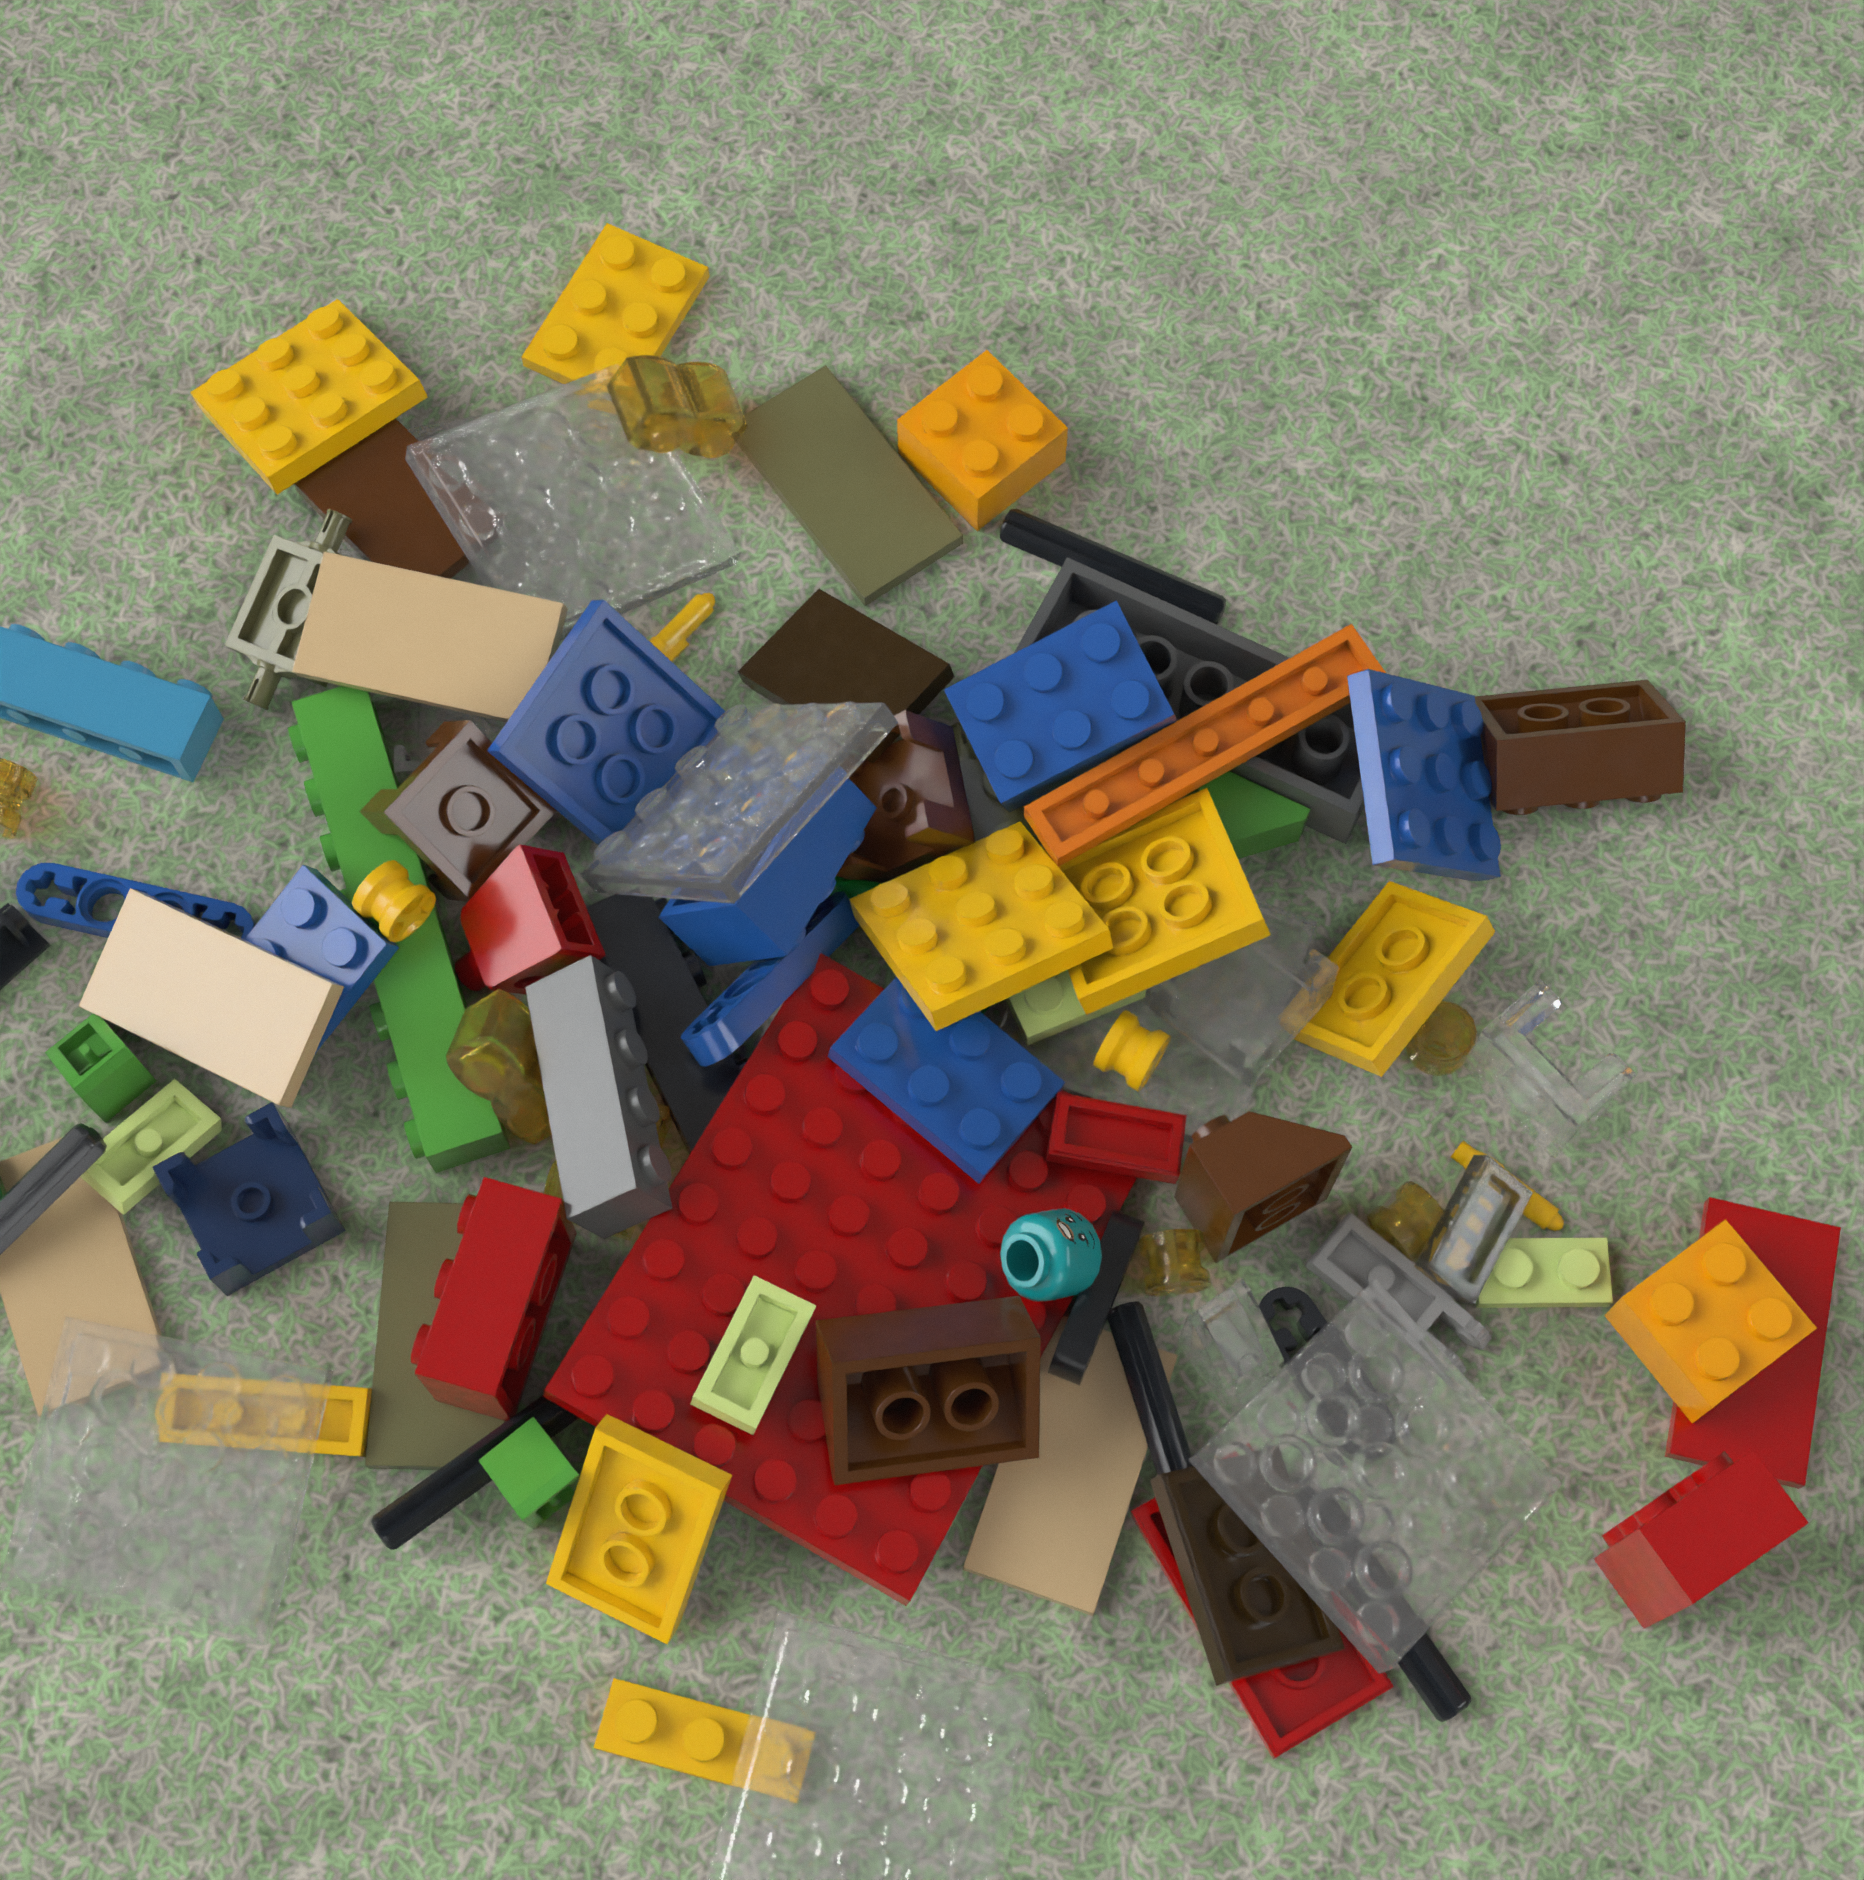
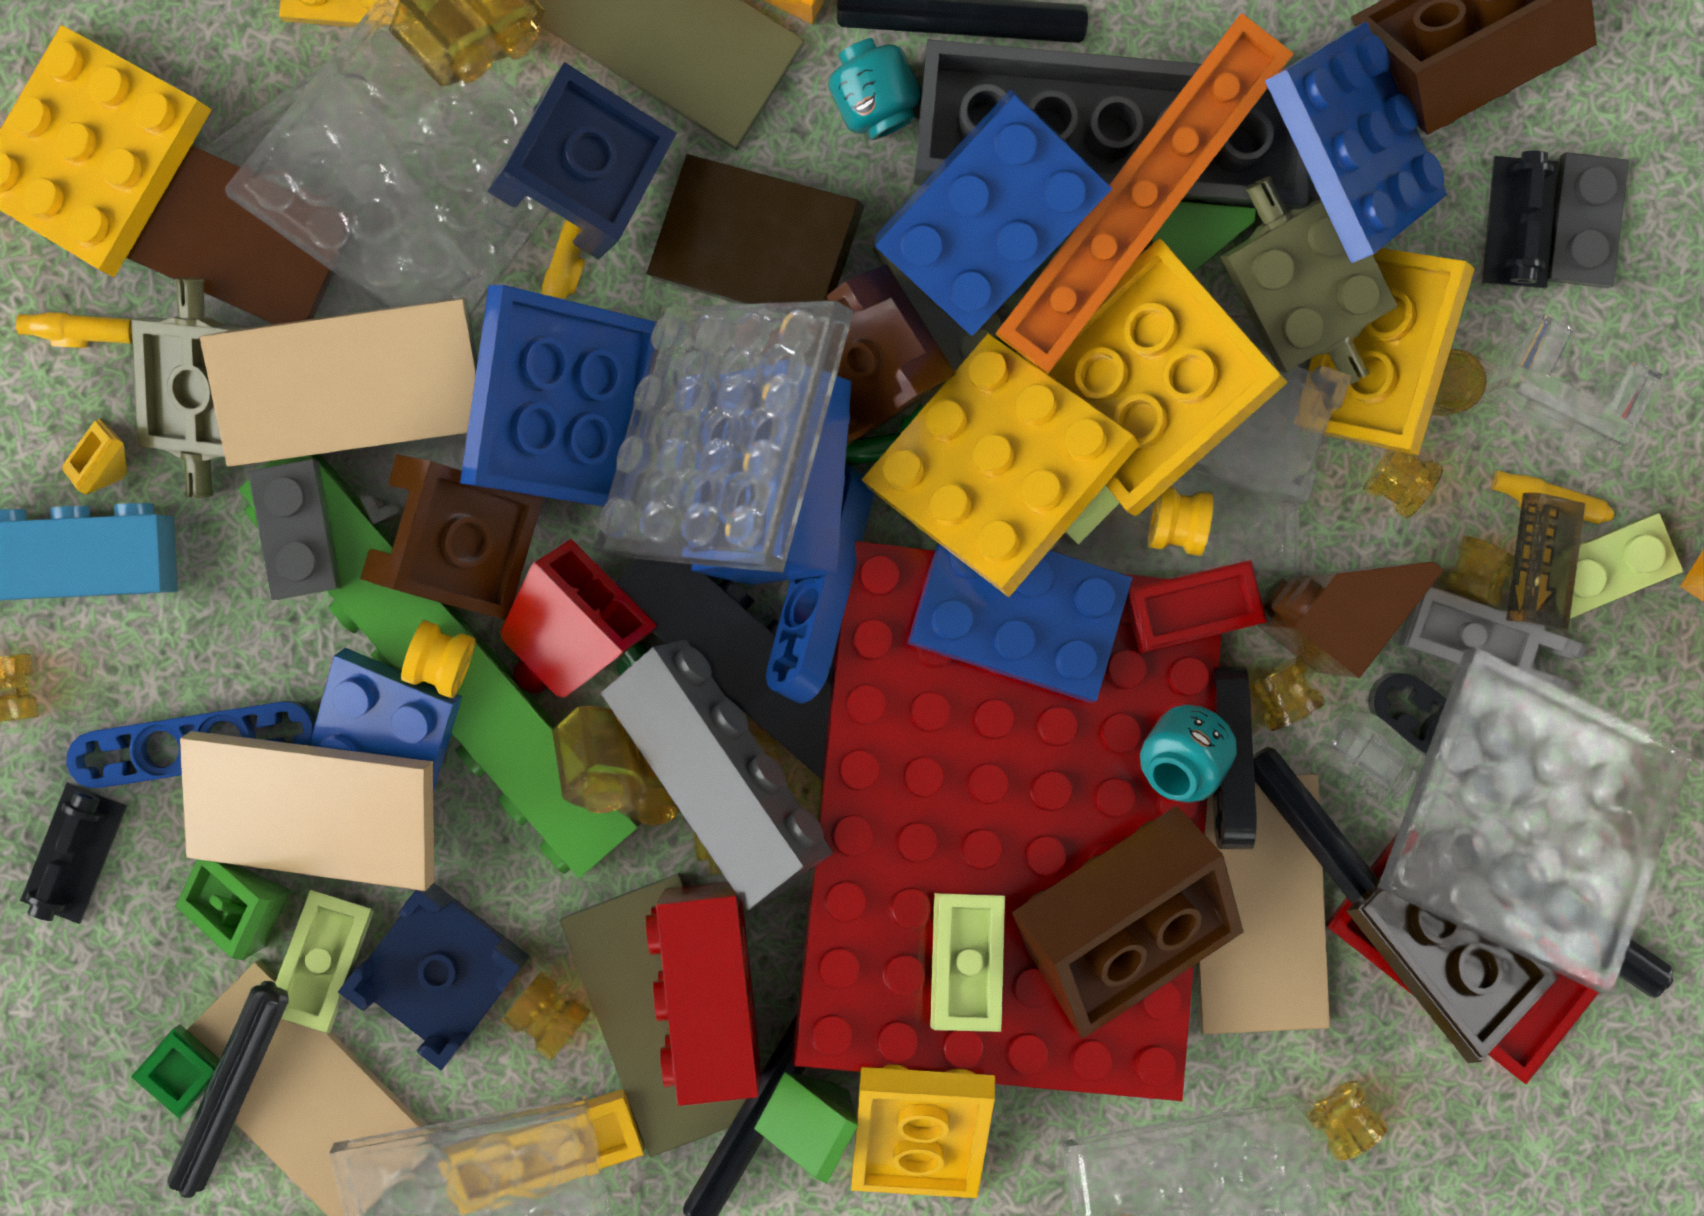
camera: 25 degrees left, 20 degrees up
(184, 644) = (96, 459): none -> yellow slope
(219, 535) = (75, 330): none -> yellow piece
(323, 750) = (294, 529): none -> dark grey plate
(331, 1281) = (545, 1016): none -> clear yellow wheel
(725, 545) = (584, 158): none -> dark blue panel
(1005, 592) = (875, 89): none -> teal head
(1074, 1714) = (1348, 1121): none -> clear yellow wheel
(1325, 885) = (1304, 286): none -> olive plate
(1364, 1107) = (1403, 481): none -> clear yellow wheel
(1563, 923) = (1520, 220): none -> black hinge
(1626, 948) = (1587, 219): none -> dark grey plate

